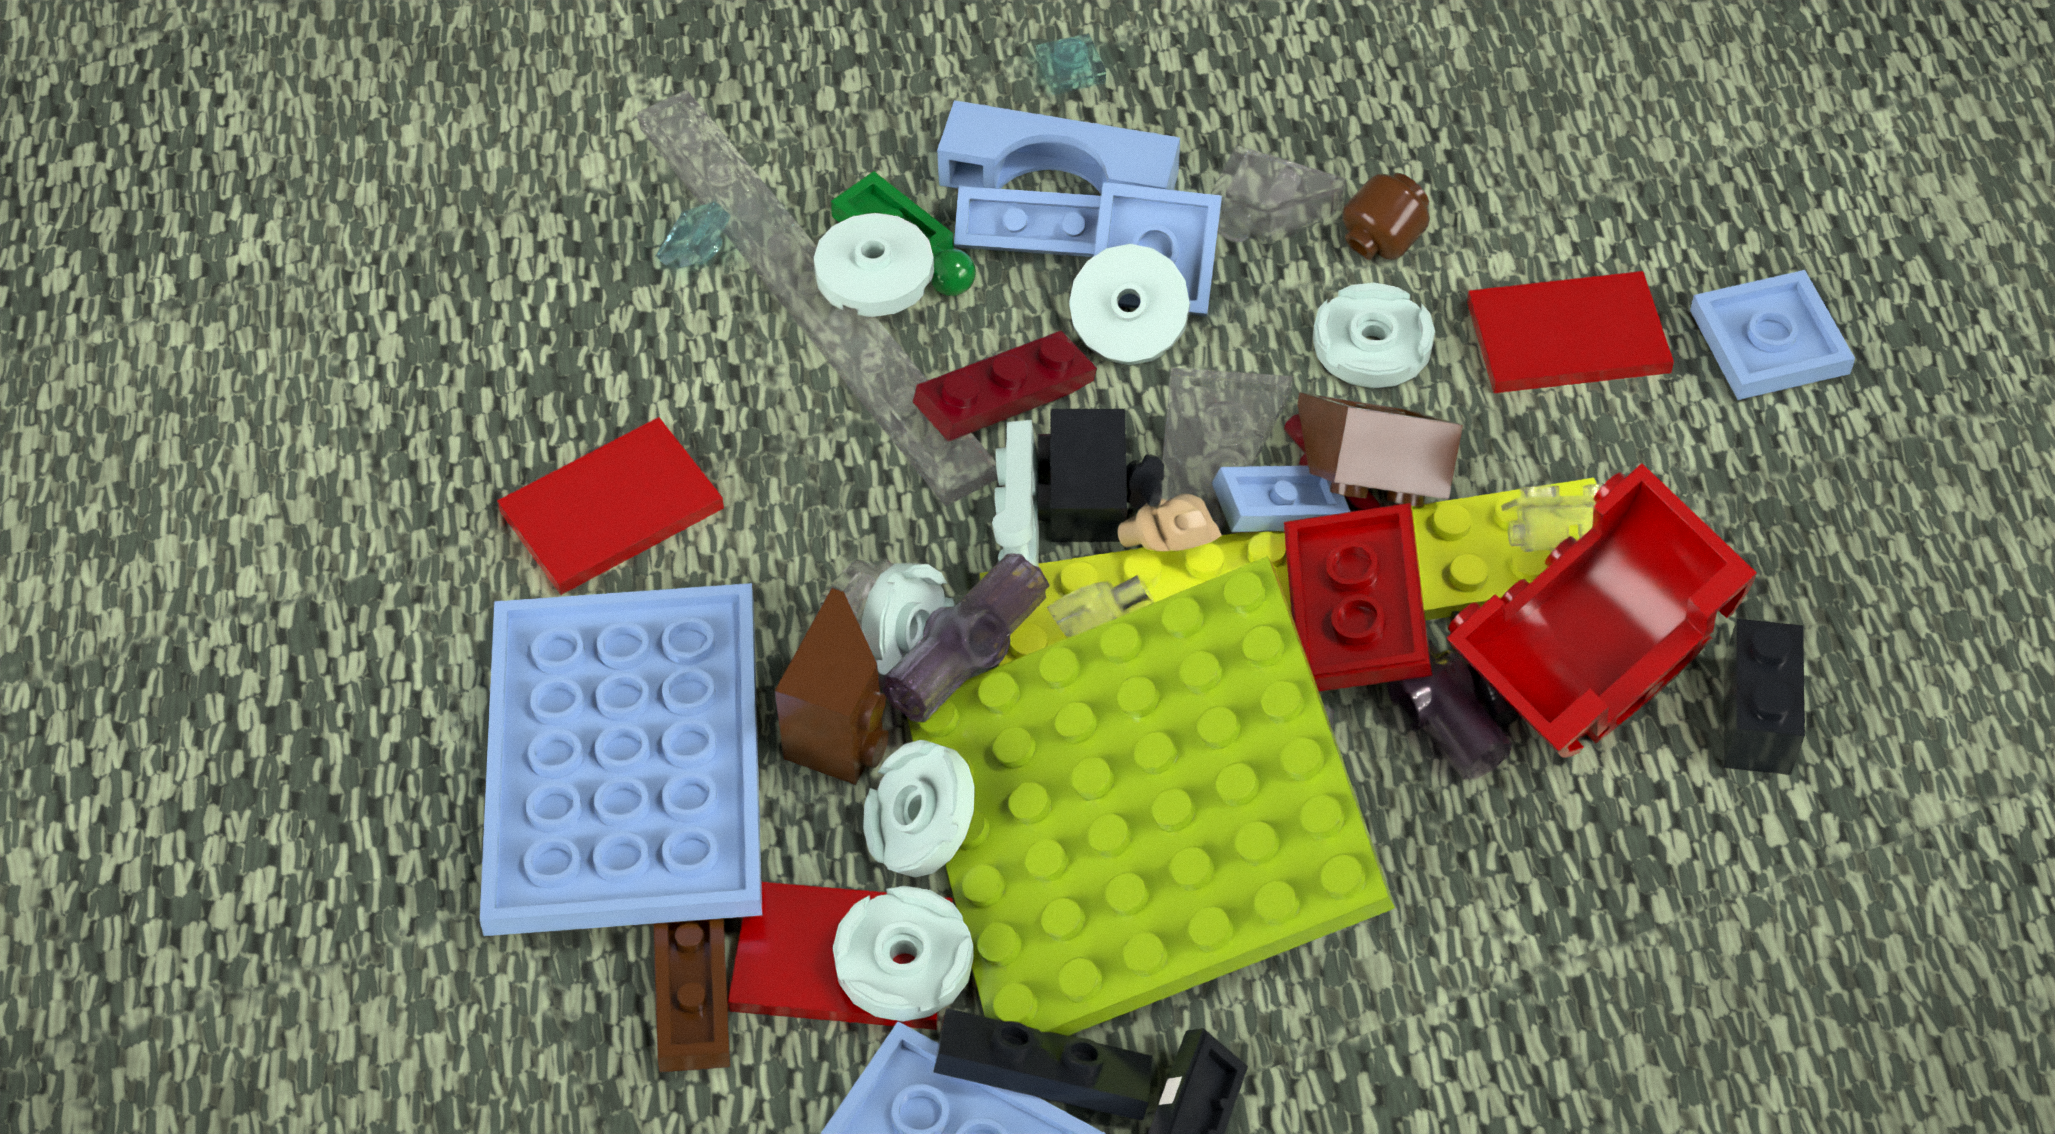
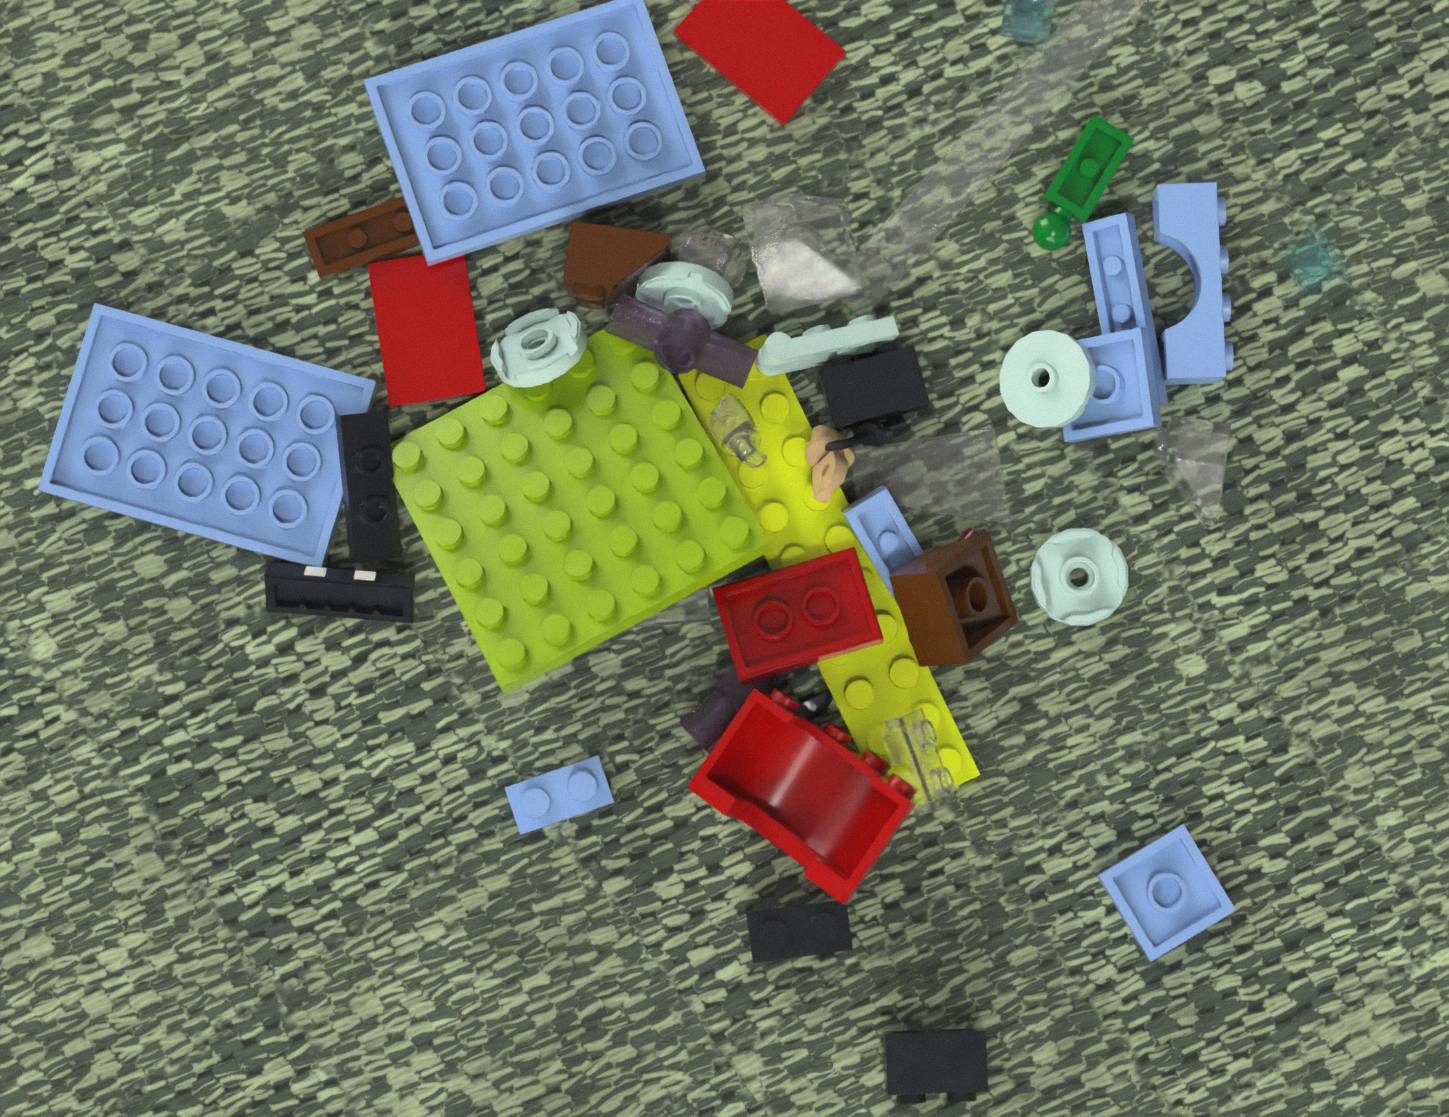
camera: 75 degrees right, 30 degrees up
(873, 264) = (1023, 193): light aqua plate -> none
(892, 505) = (802, 250): none -> clear slope
(899, 923) = (416, 345): light aqua plate -> none
(1003, 385) = (943, 304): dark red plate -> none
(1386, 216) = (1202, 561): reddish brown head -> none
(1528, 941) = (559, 795): none -> light blue plate
(1569, 332) = (1129, 731): red tile -> none
(1955, 595) = (935, 1063): none -> black brick

